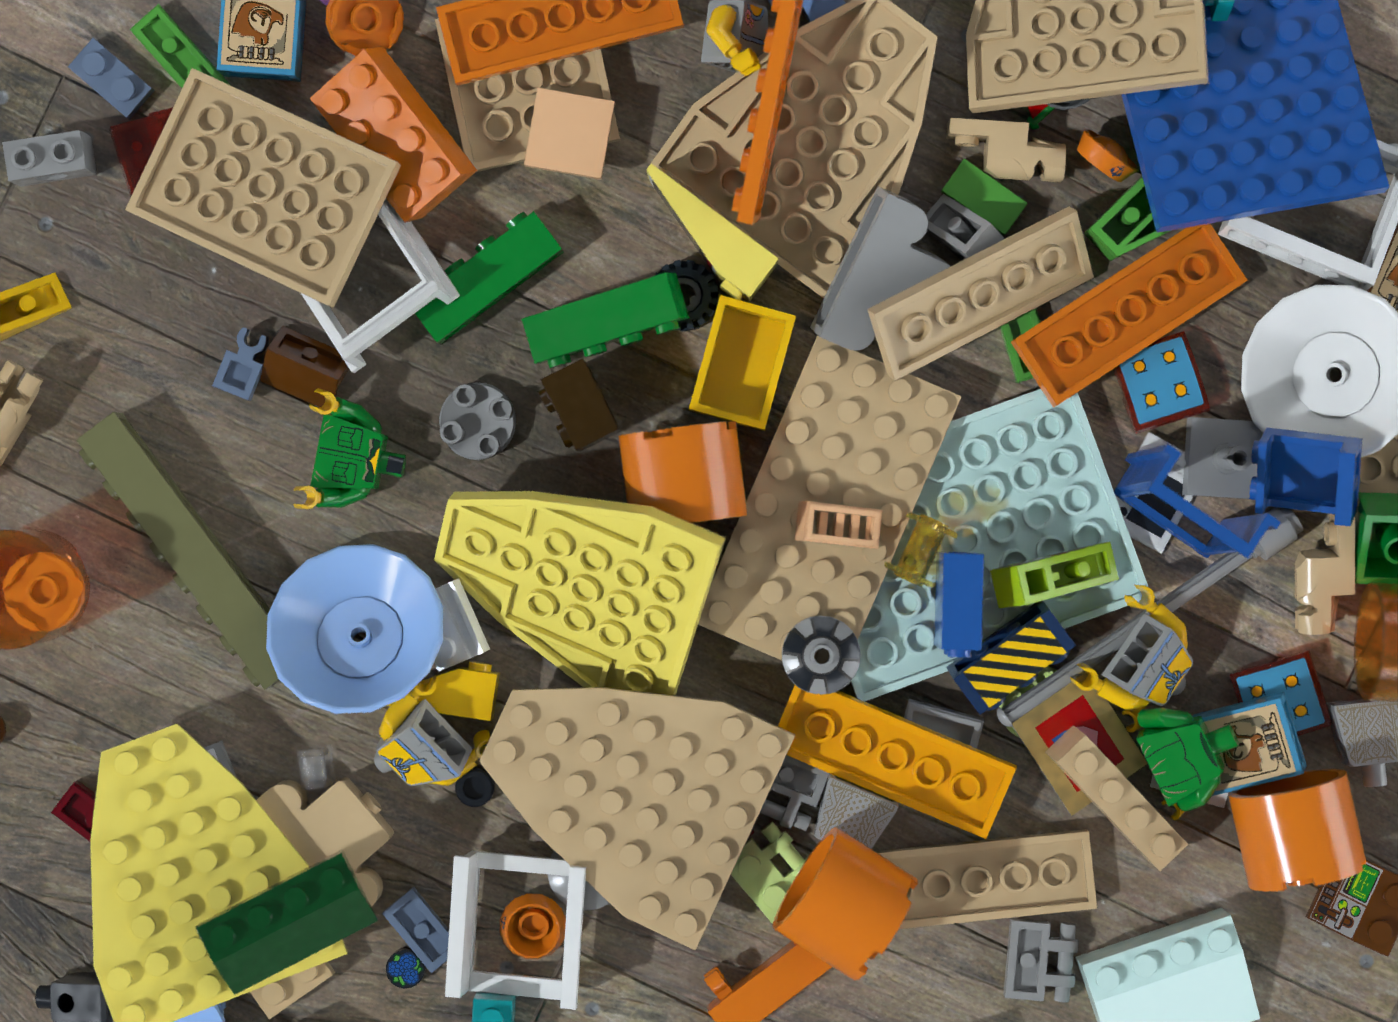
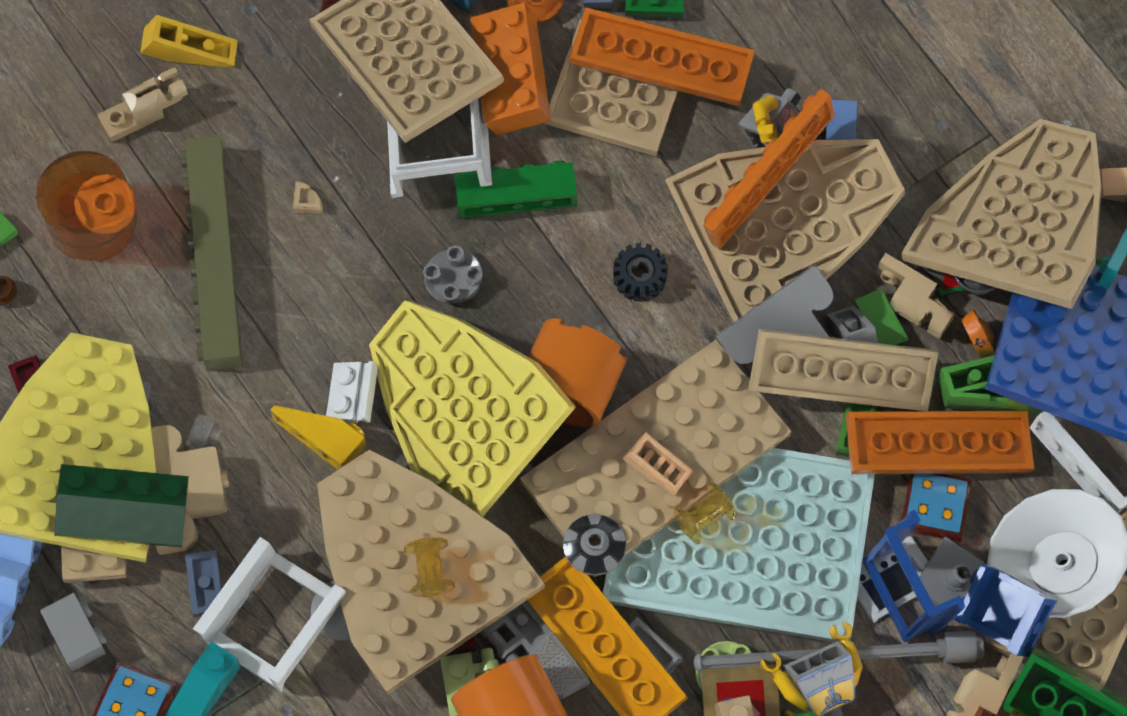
camera: 25 degrees right, 20 degrees down
(240, 371) = (318, 160): sand blue plate -> none
(256, 423) = (306, 200): none -> tan tile
(302, 365) = (359, 181): reddish brown panel -> none
(348, 455) = (354, 247): green torso -> none
(348, 594) = (289, 351): light blue dish -> none
(405, 968) = (176, 604): tile -> none
(423, 744) = (285, 452): torso -> none
(475, 787) = (301, 511): black tile -> none
(532, 926) = (282, 617): orange hat -> none
(569, 133) = (625, 129): light nougat tile -> none
(579, 405) = (526, 296): dark brown brick -> none
(606, 318) = (579, 252): green brick -> none
(664, 799) = (429, 567): none -> clear yellow hose
(727, 250) = (688, 257): light yellow slope -> none
(742, 362) = (656, 329): yellow piece -> none
(959, 603) = (711, 558): blue brick -> none
(1011, 657) = (727, 623): brick -> none
(1054, 575) = (788, 582): lime slope -> none

